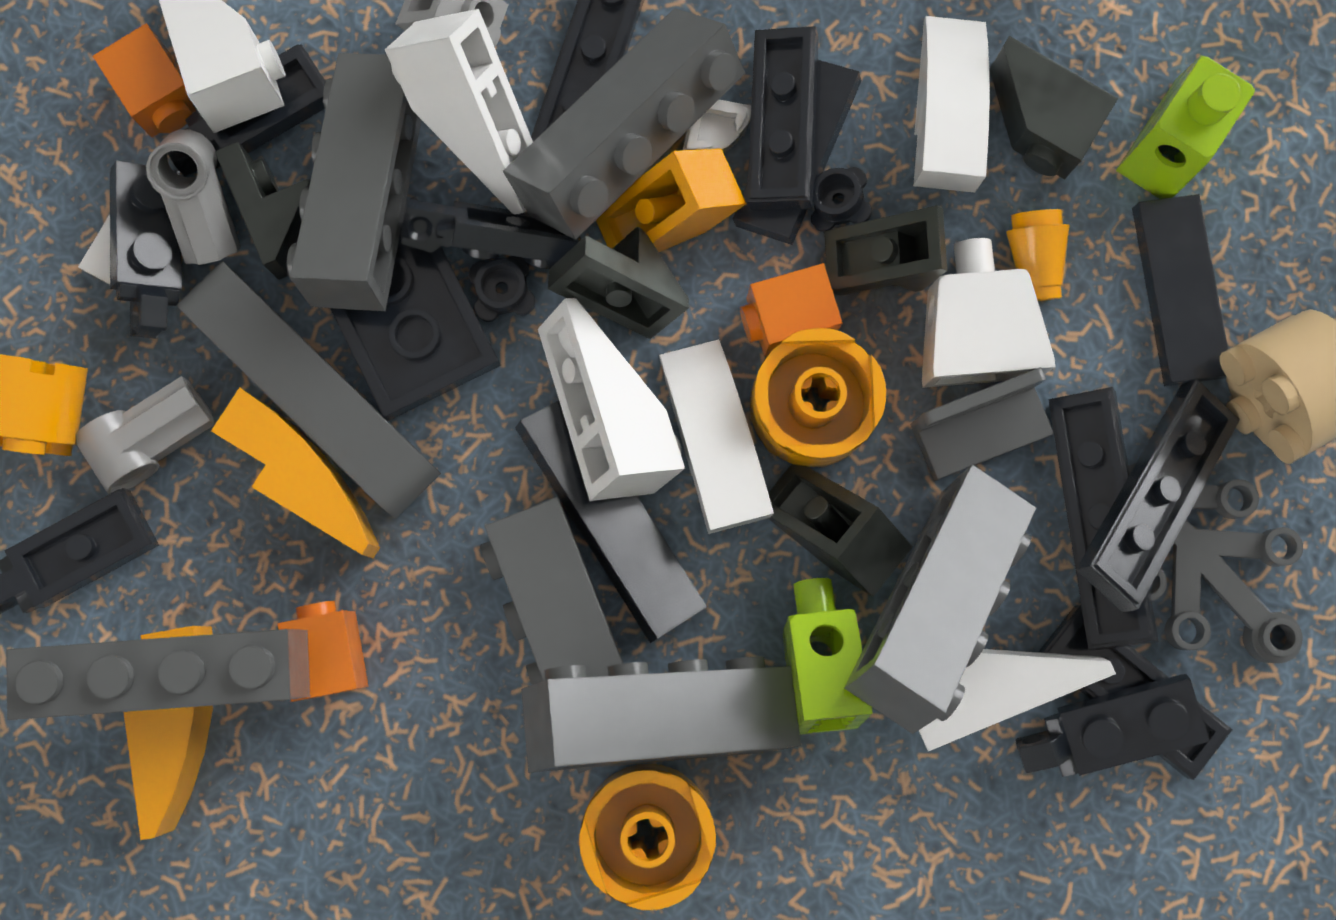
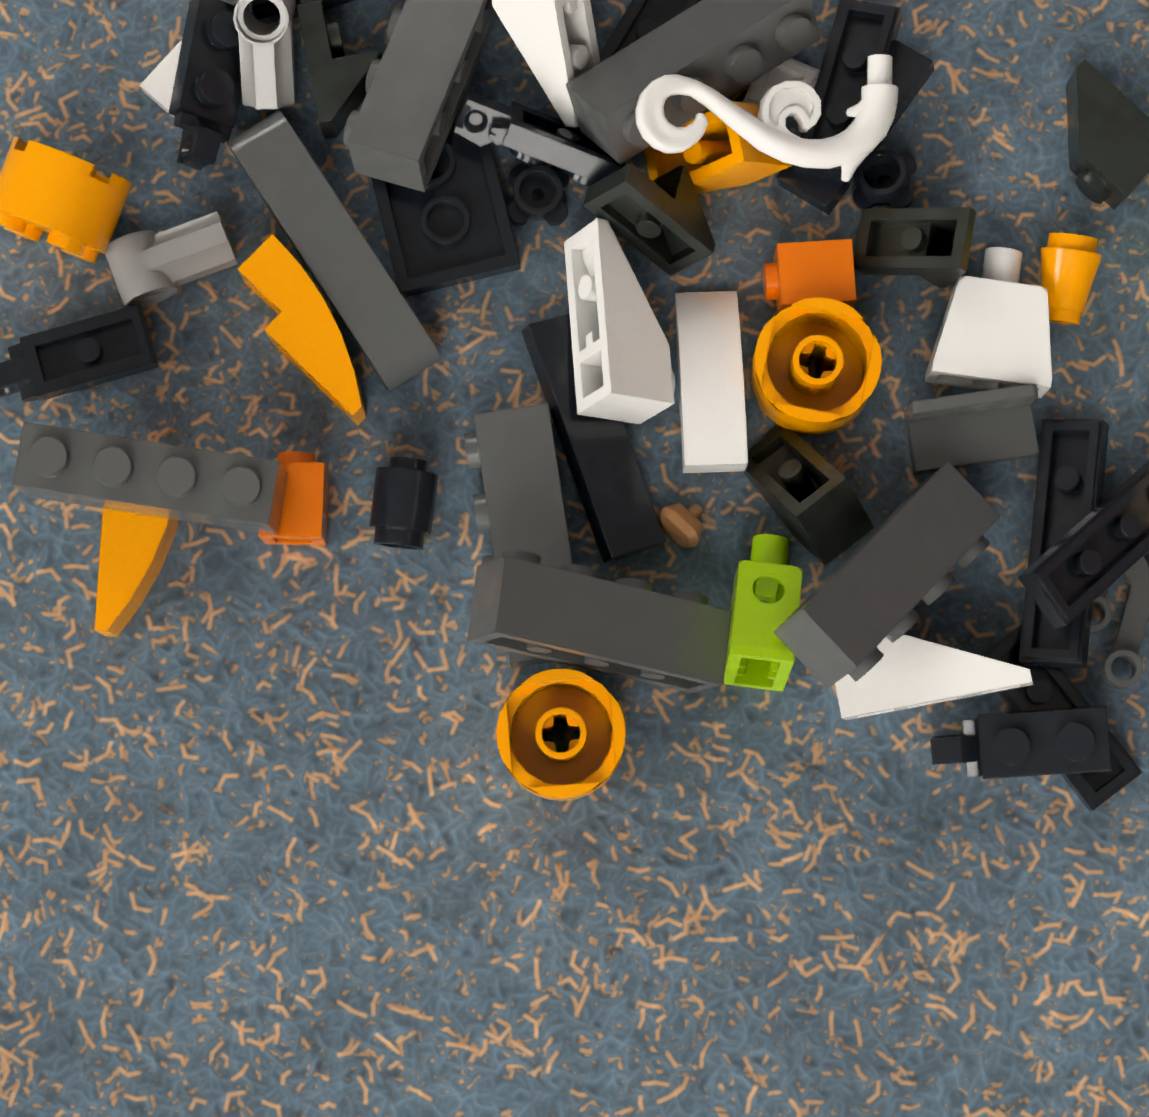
camera: 20 degrees right, 0 degrees up
(434, 630) = (403, 503): none -> black brick
(717, 173) = (769, 131): none -> white plant
(719, 584) = (682, 524): none -> medium nougat rock
(952, 105) = (1017, 111): white slope -> none

